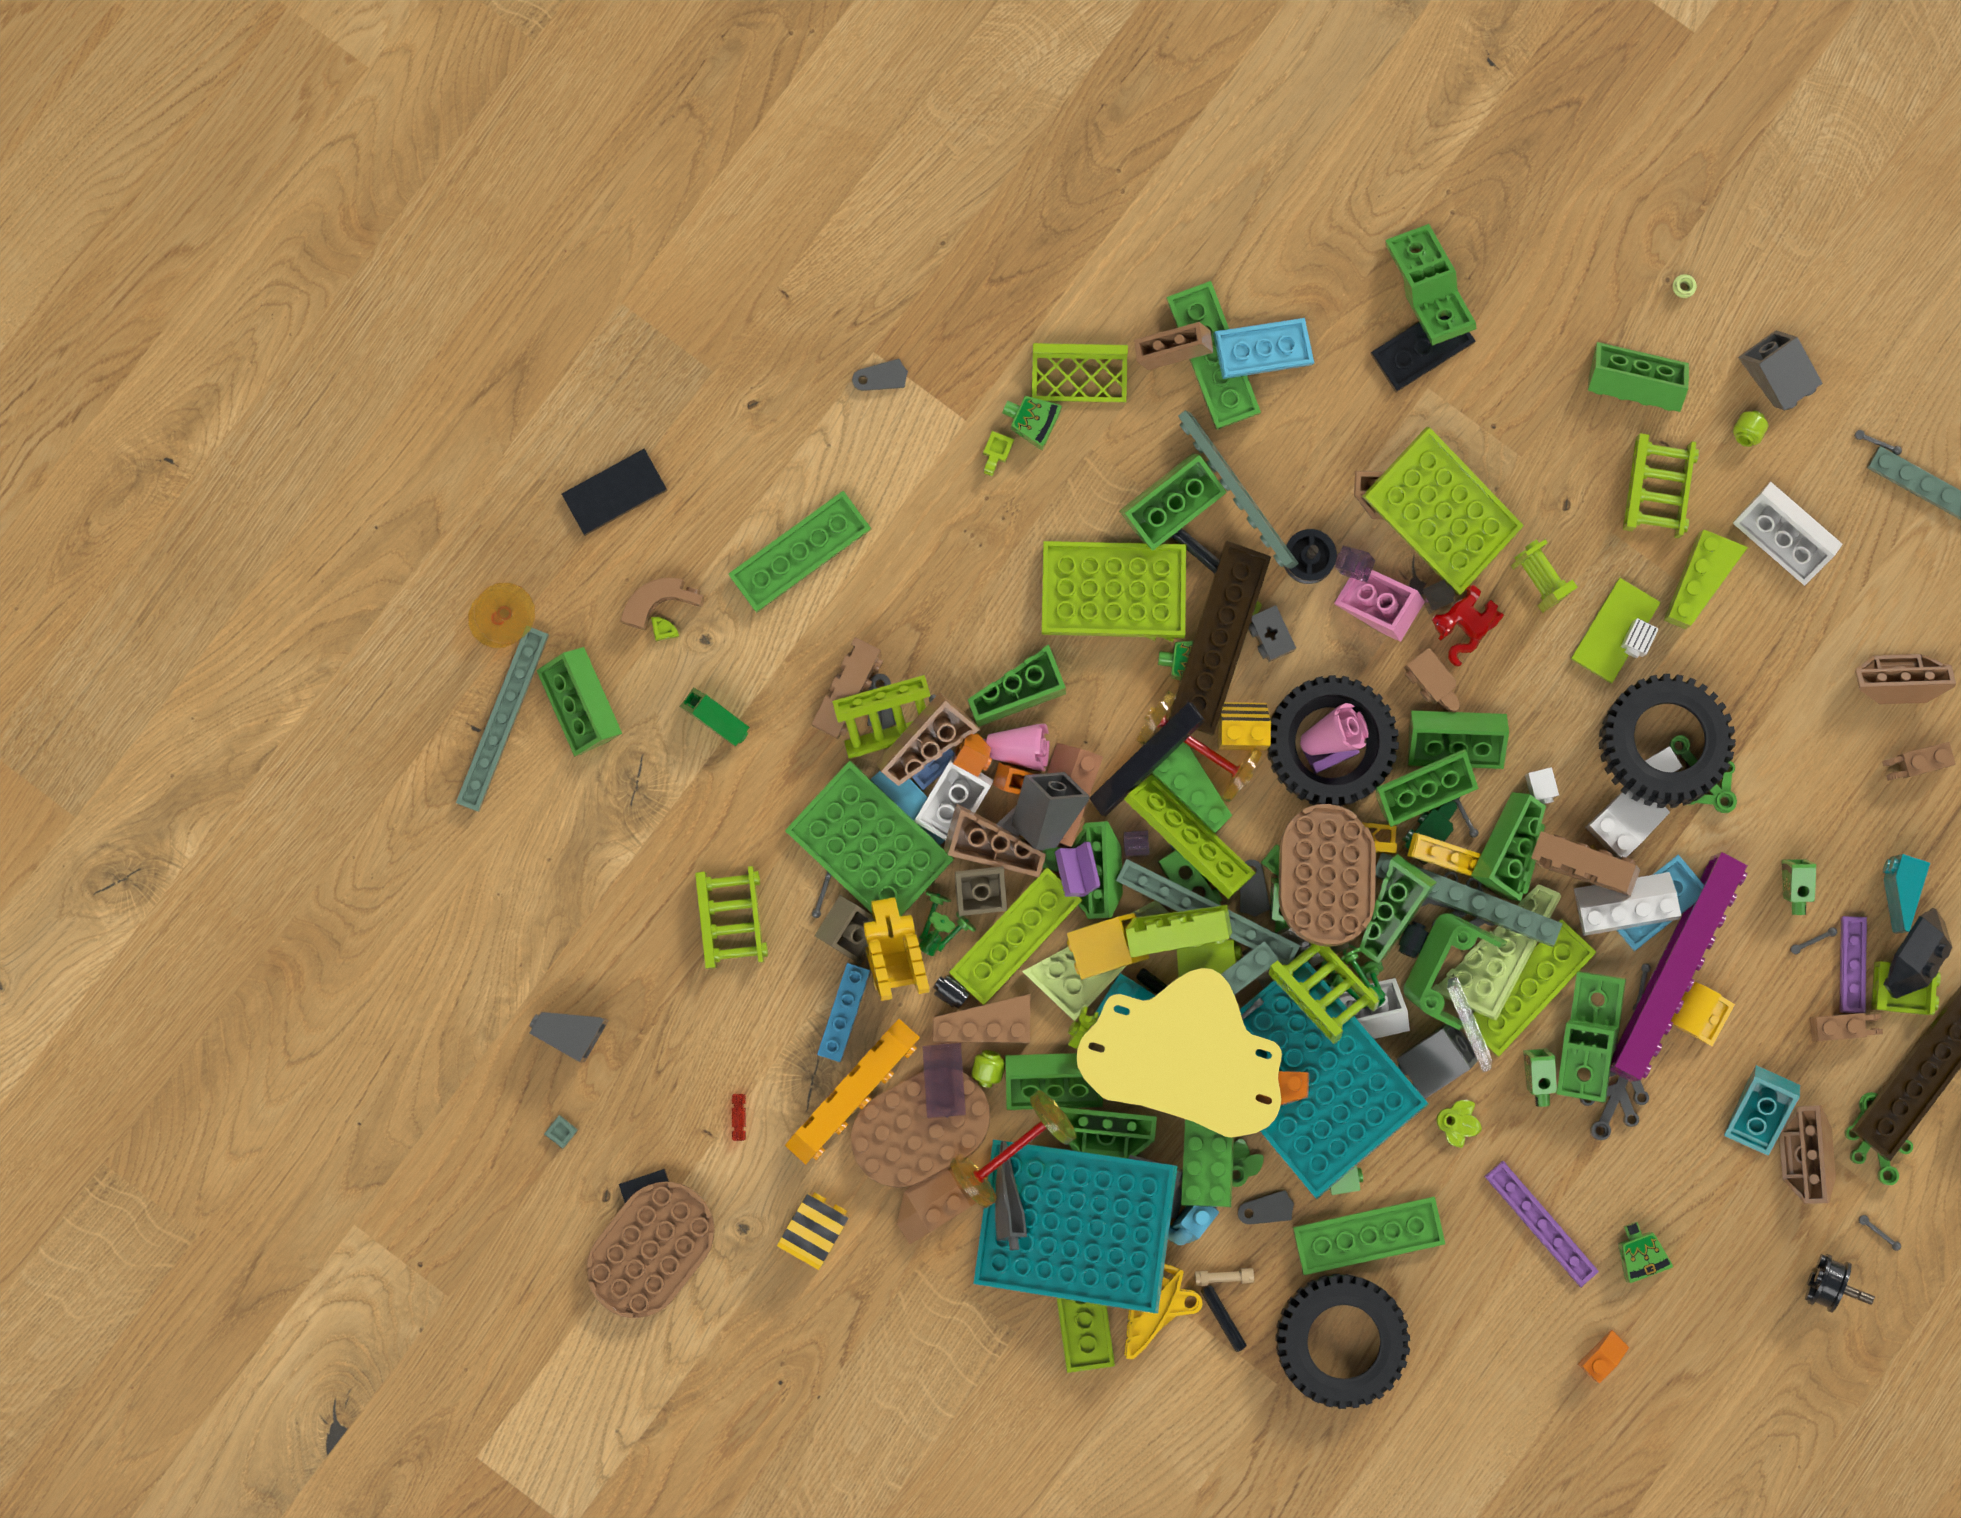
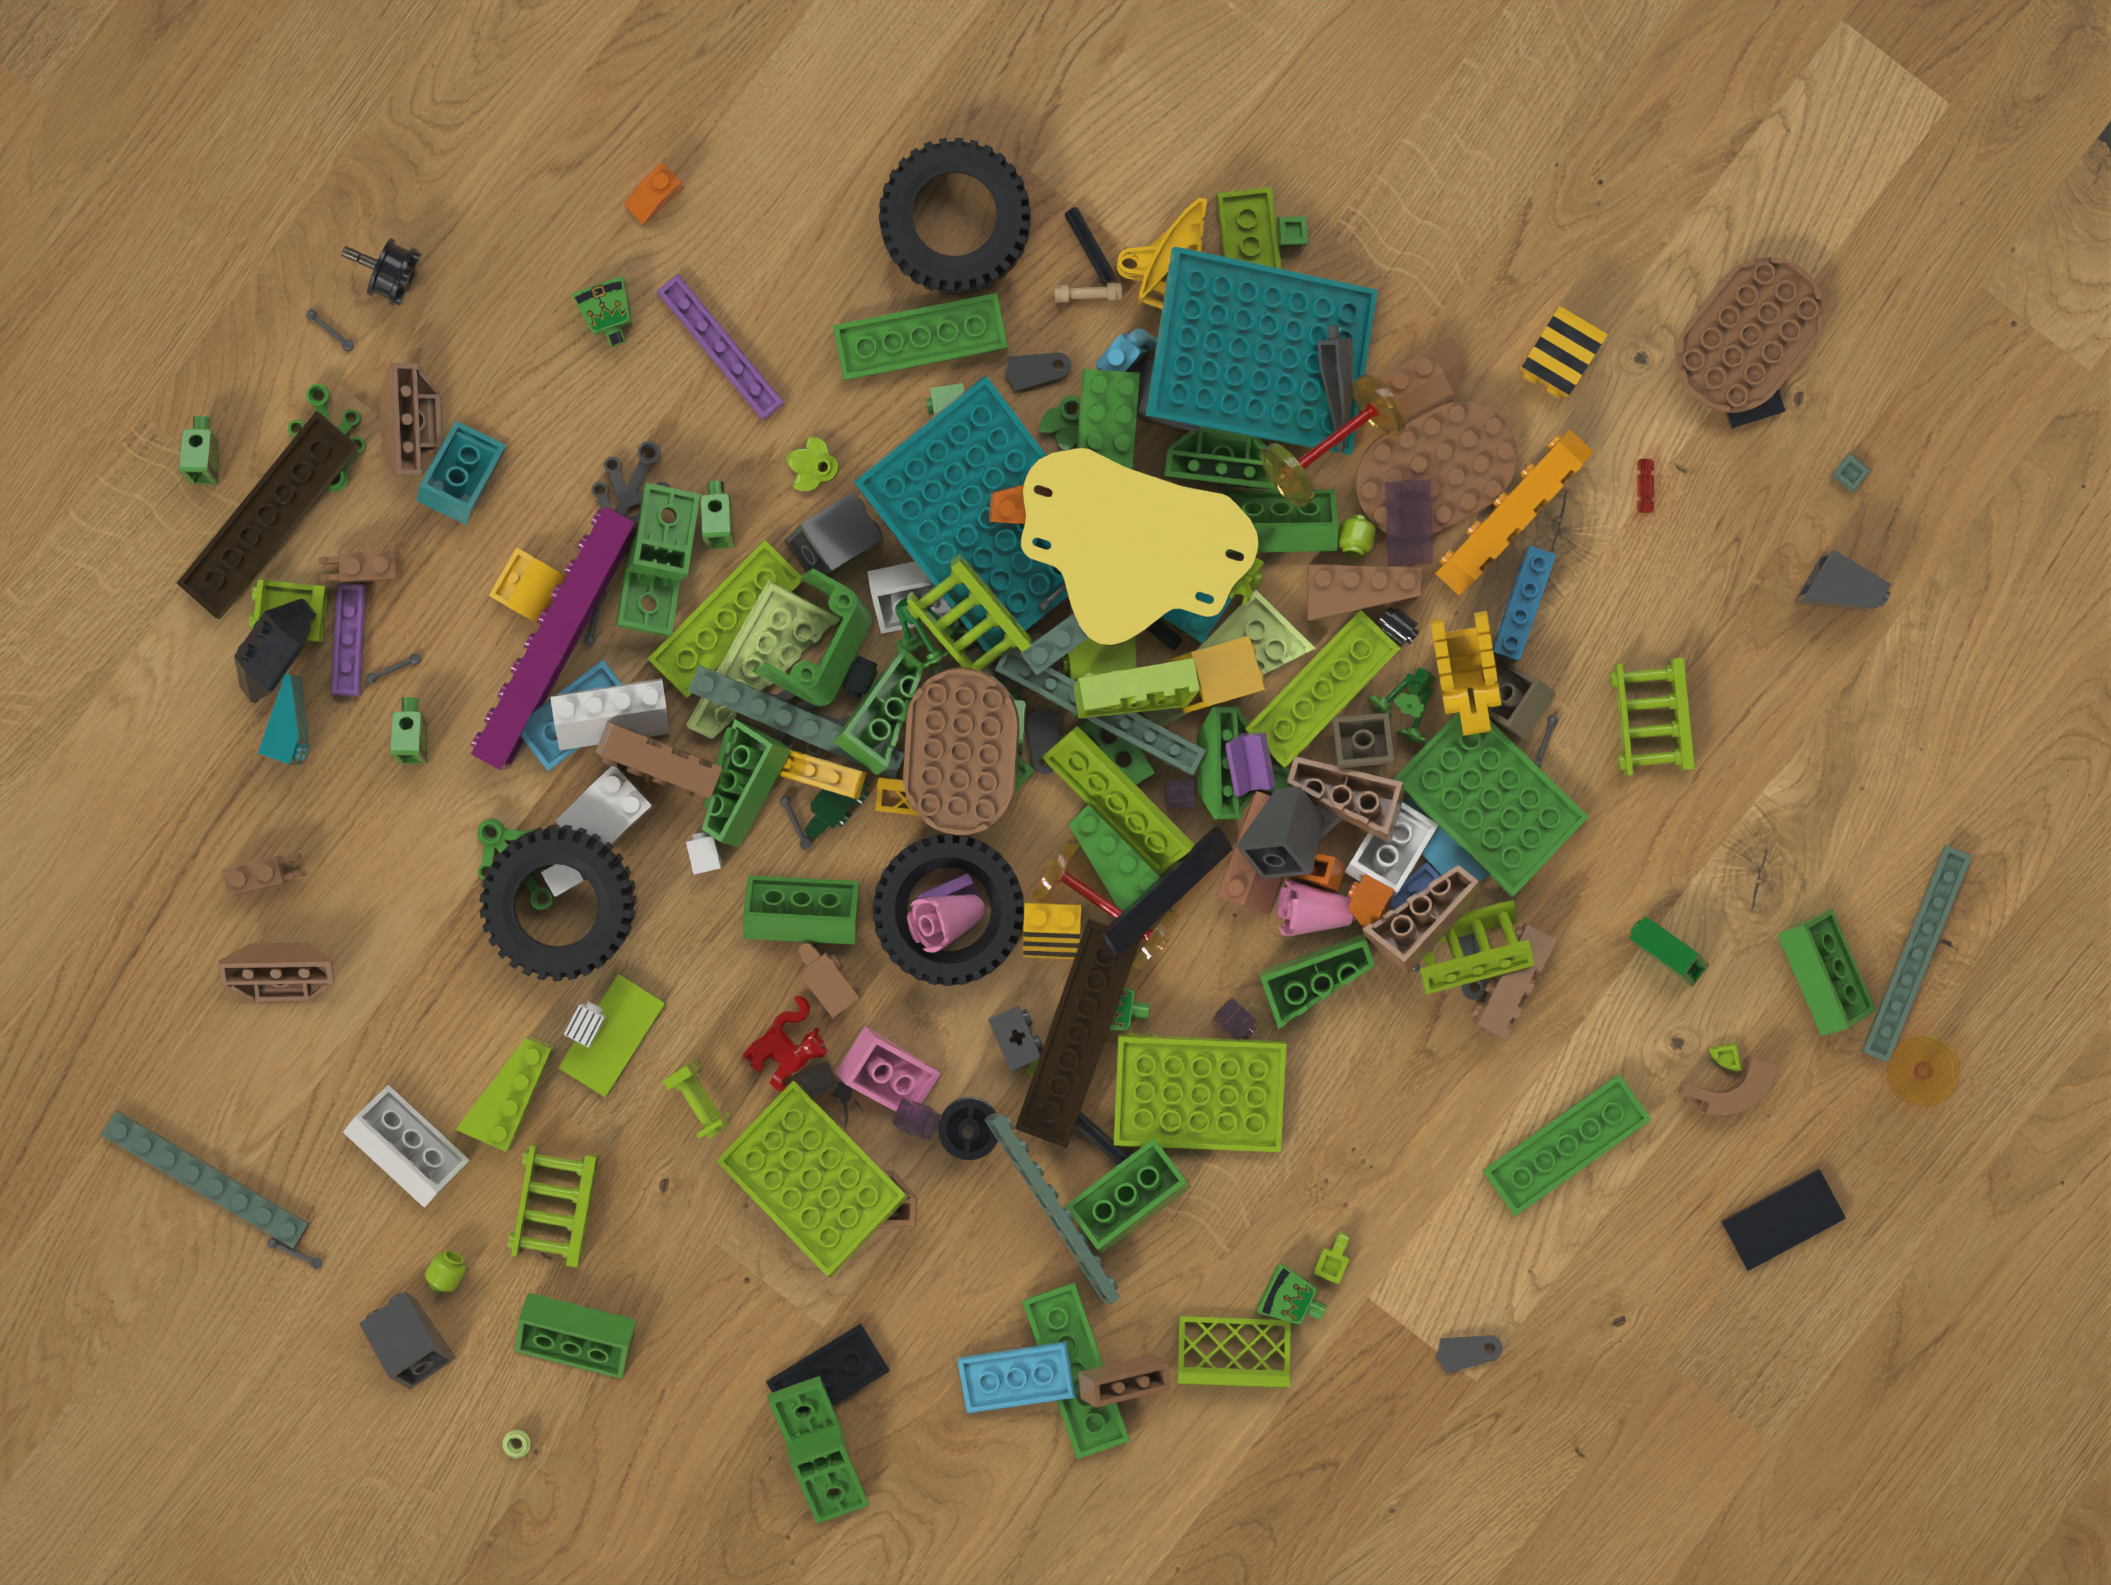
camera: 175 degrees right, 5 degrees up
(1048, 1333) = (1292, 231): none -> bright green plate
(1084, 652) = (1235, 1019): none -> brick
(1426, 788) = (840, 851): bright green slope -> none
(1469, 1024) = (799, 576): clear tile -> none

